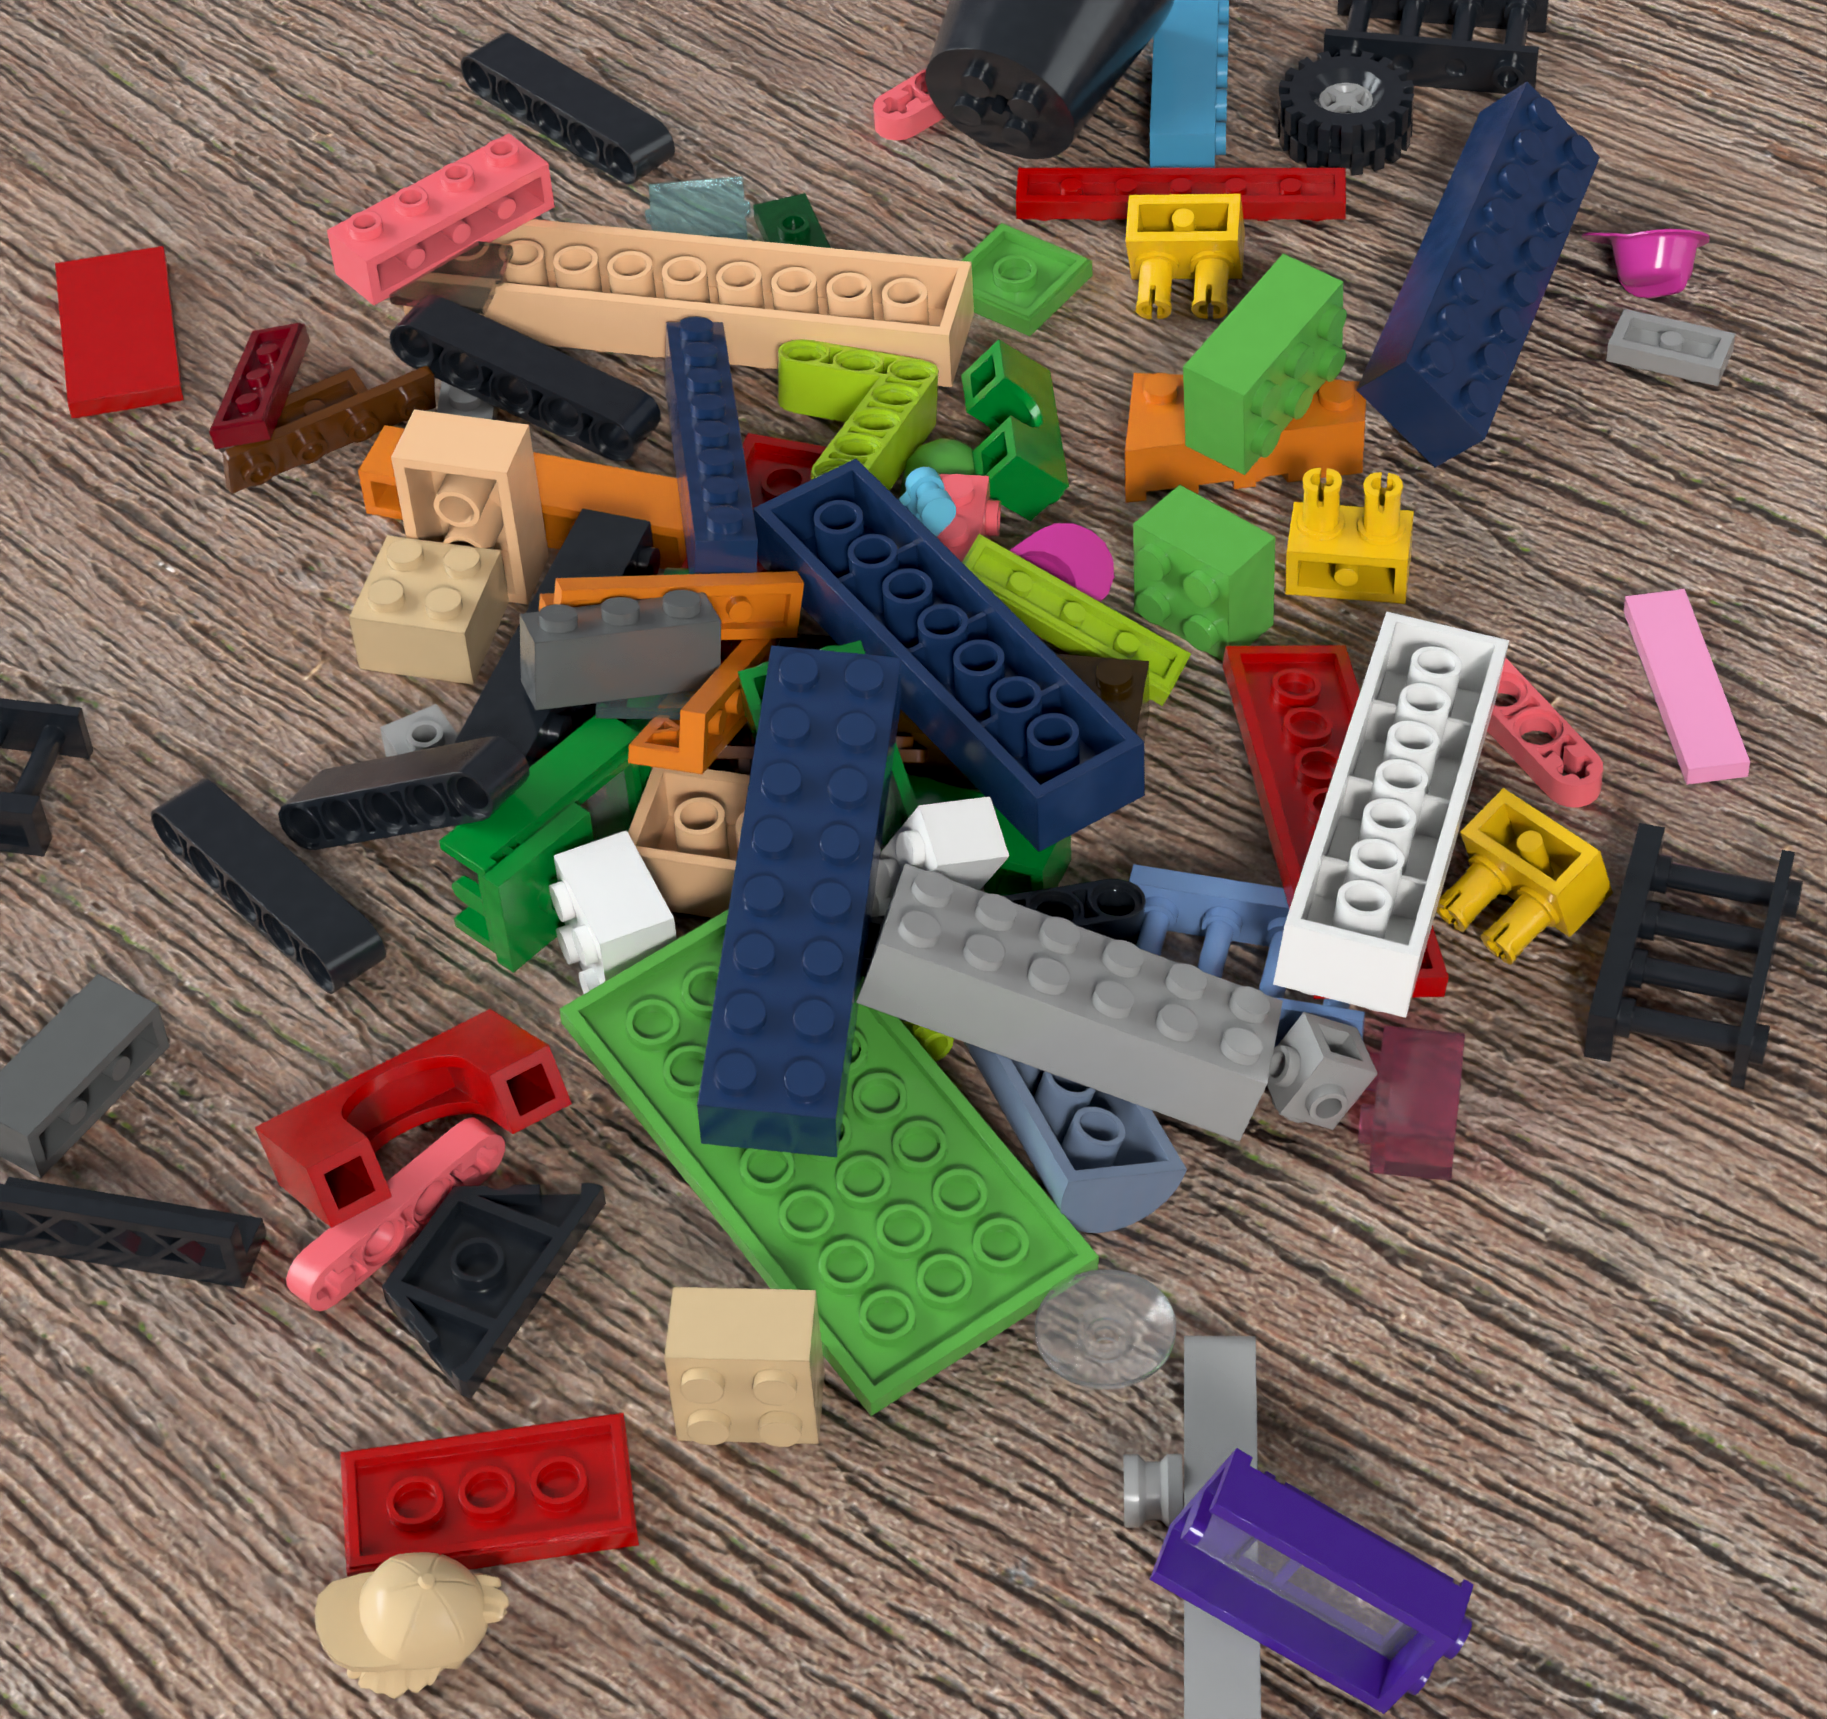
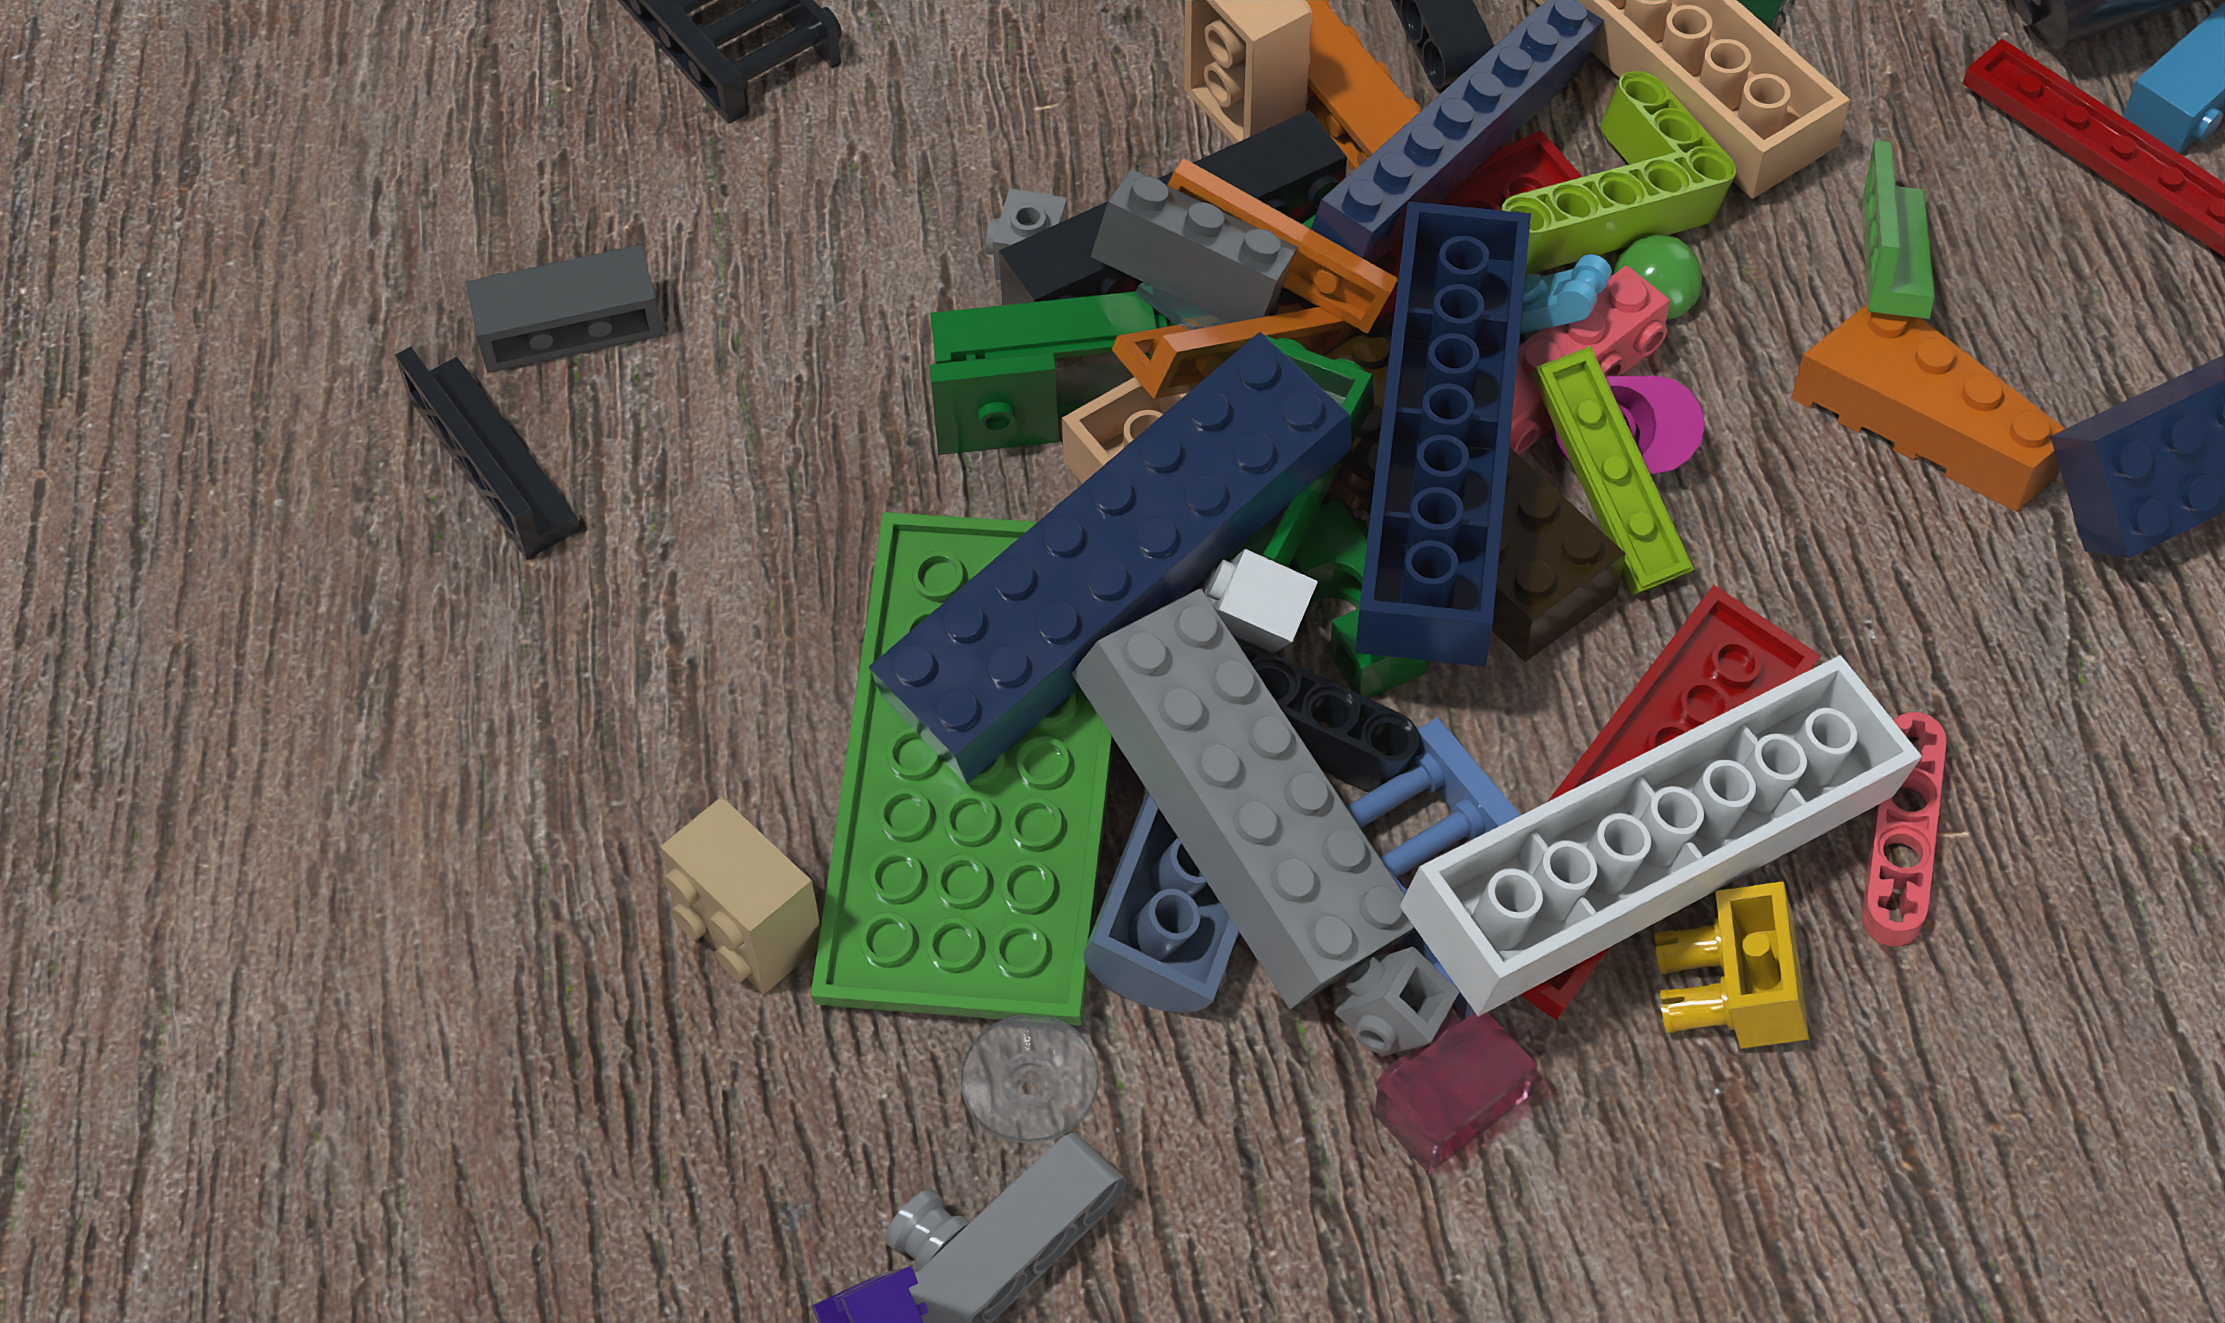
camera: 40 degrees right, 10 degrees up
(268, 885) = (833, 259): black beam -> none
(364, 1243) = (596, 587): coral beam -> none
(405, 793) = (960, 257): black beam -> none
(407, 1620) = (353, 896): tan hair -> none
(429, 609) = (1157, 109): tan brick -> none
(480, 1067) = (657, 491): red arch -> none
(484, 1270) = (674, 674): black wing -> none
(492, 1495) = (511, 851): red tile -> none
(608, 909) = (1012, 459): white brick -> none
(1023, 278) = (1924, 131): bright green tile -> none
(1026, 444) = (1725, 304): green arch -> none
(1097, 334) = (1895, 241): none -> bright green fence
(1184, 239) = (2067, 195): yellow brick -> none
(1203, 573) = (1755, 509): bright green brick -> none
(1264, 364) = (1966, 359): bright green brick -> none
(1349, 548) = (1913, 572): yellow brick -> none
(1641, 918) = (1806, 1078): black fence -> none
(1686, 687) = (2080, 907): bright pink tile -> none

